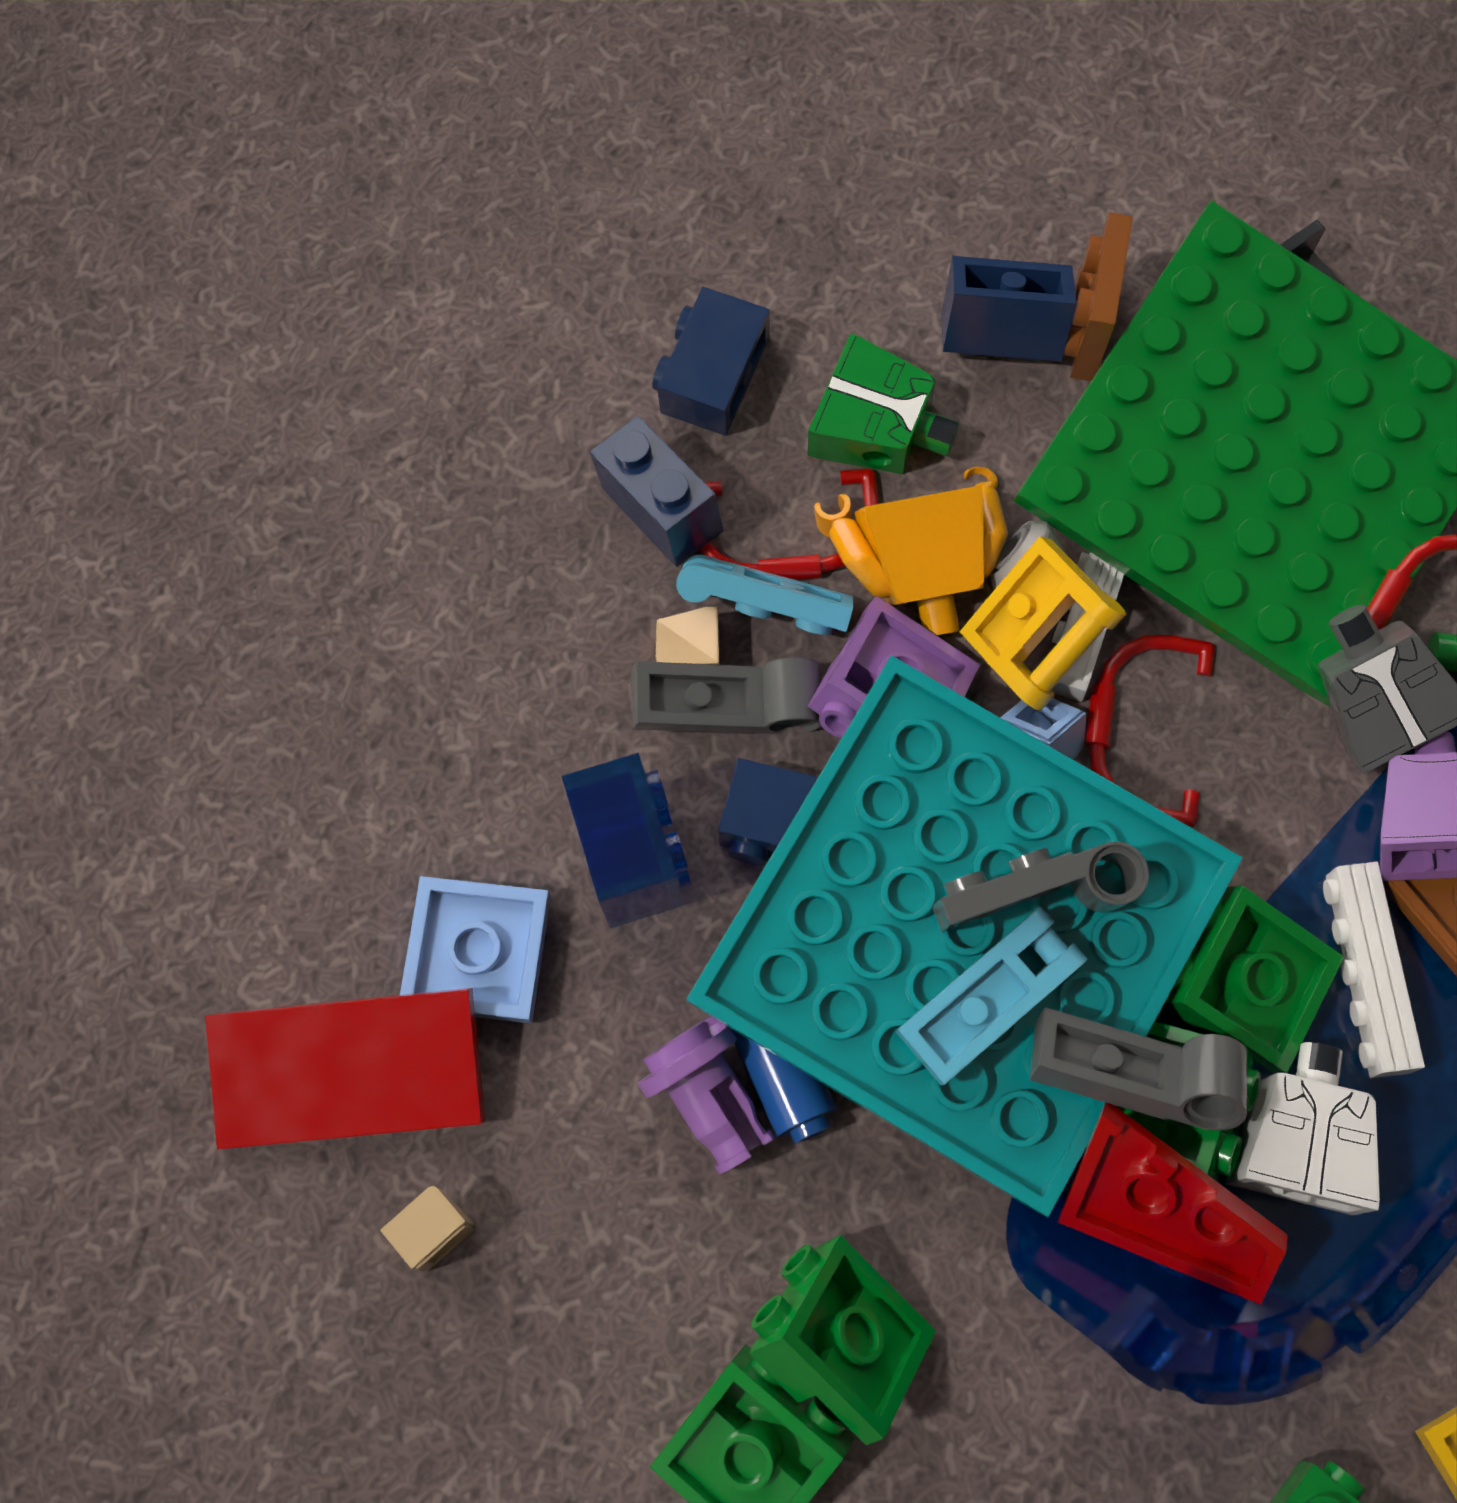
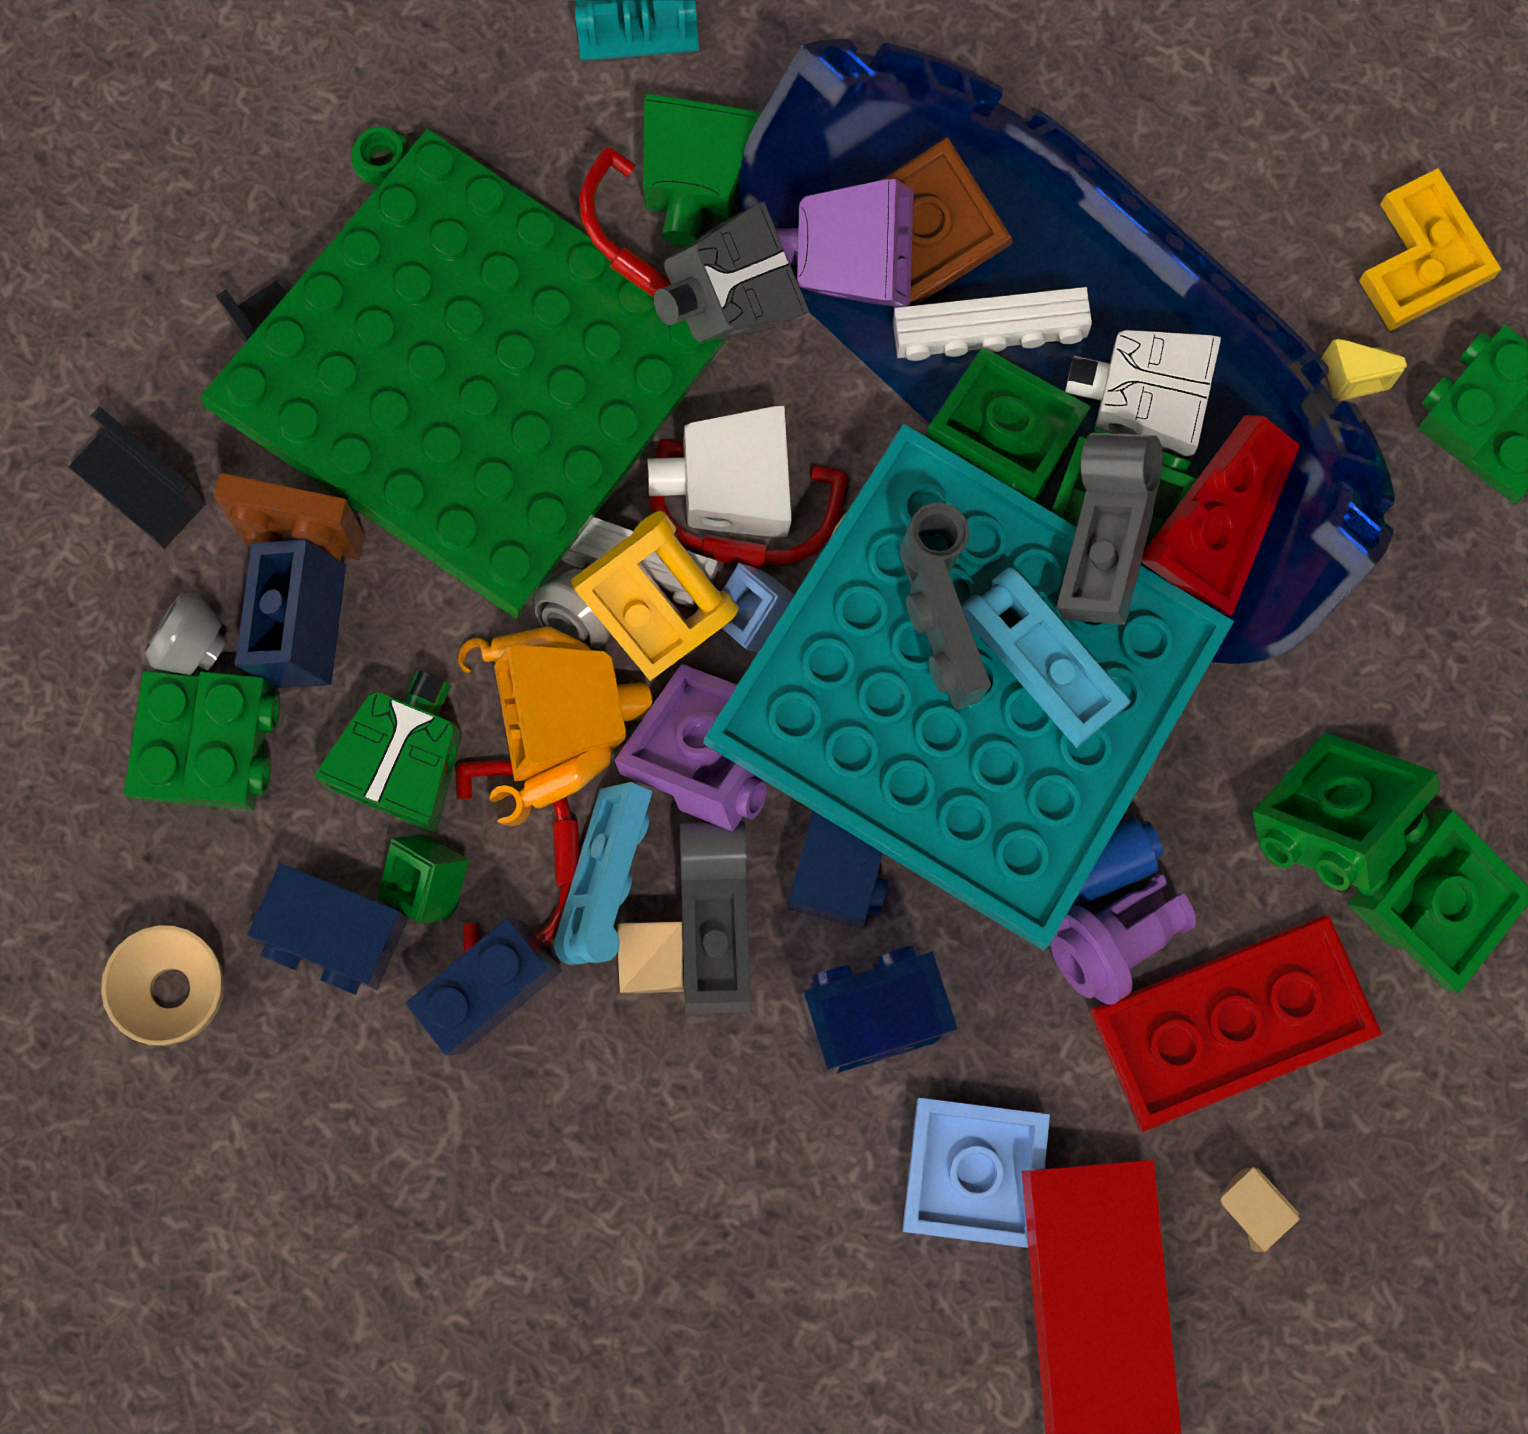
camera: 95 degrees left, 5 degrees up
(623, 1223) = (1235, 1023): none -> red tile
(659, 208) = (131, 978): none -> tan piece
(762, 442) = (422, 878): none -> green slope
(887, 253) = (202, 740): none -> green plate
(983, 226) = (186, 636): none -> light grey cone
(1133, 178) = (137, 481): none -> black panel
(1181, 704) = (731, 474): none -> white torso
(1360, 1390) = (1360, 369): none -> light yellow slope

